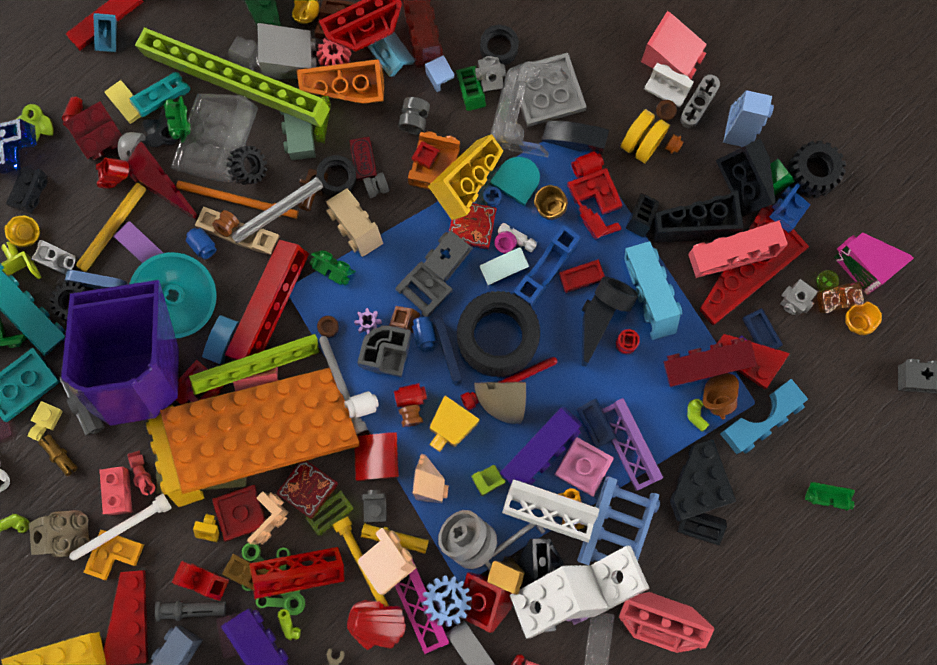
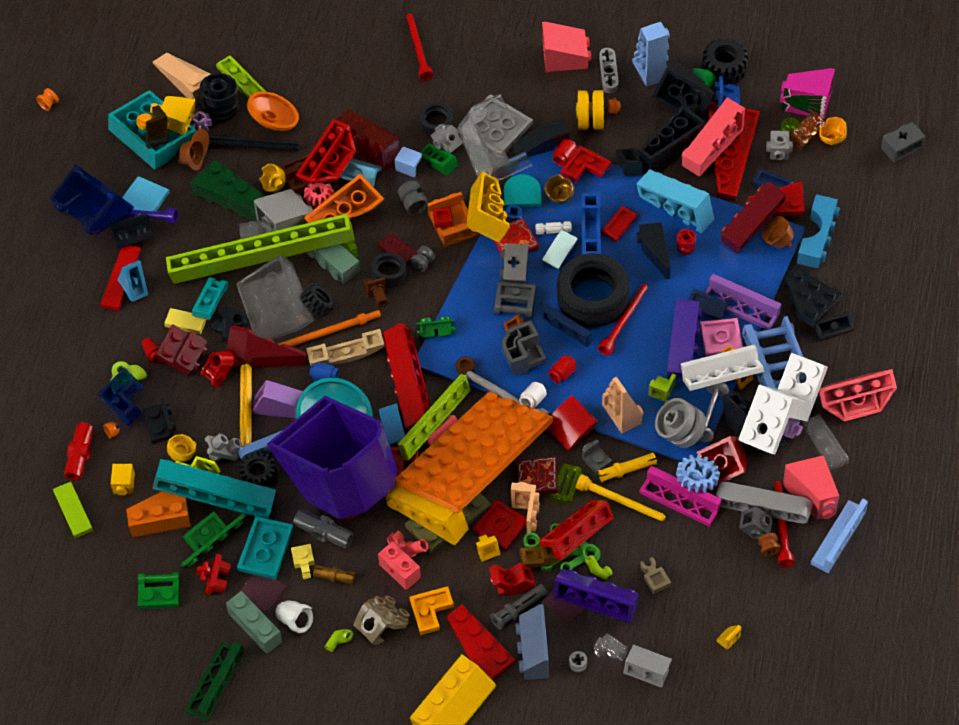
camera: 30 degrees left, 20 degrees down
(128, 143) = (215, 340): light grey hair -> none
(159, 505) = (439, 554): white piece -> none
(179, 126) = (239, 303): green hinge -> none
(225, 223) = (334, 346): dark orange wheel -> none
(277, 210) = (366, 313): light grey axle -> none
(354, 223) = (429, 287): tan wedge -> none
(367, 316) = (492, 343): lavender gear -> none
(376, 624) = (659, 524): red hair -> none
(386, 562) = (635, 475): light nougat bracket -> none
(410, 416) = (574, 380): dark orange wheel -> none
(424, 333) = (542, 325): blue brick -> none
(451, 424) = (606, 365): yellow torso -> none
(503, 400) = (632, 326): dark tan brick -> none
(505, 242) = (547, 234): dark pink tile -> none
(506, 575) = (726, 427): slope -> none
(595, 223) = (600, 184): red piece -> none
(616, 294) = (654, 214): black tyre -> none
(666, 110) = (590, 86): reddish brown tile -> none
(668, 84) = (579, 71): white bracket -> none
(694, 414) = (769, 258): lime arm -> none
(828, 494) = (902, 250): green hinge -> none

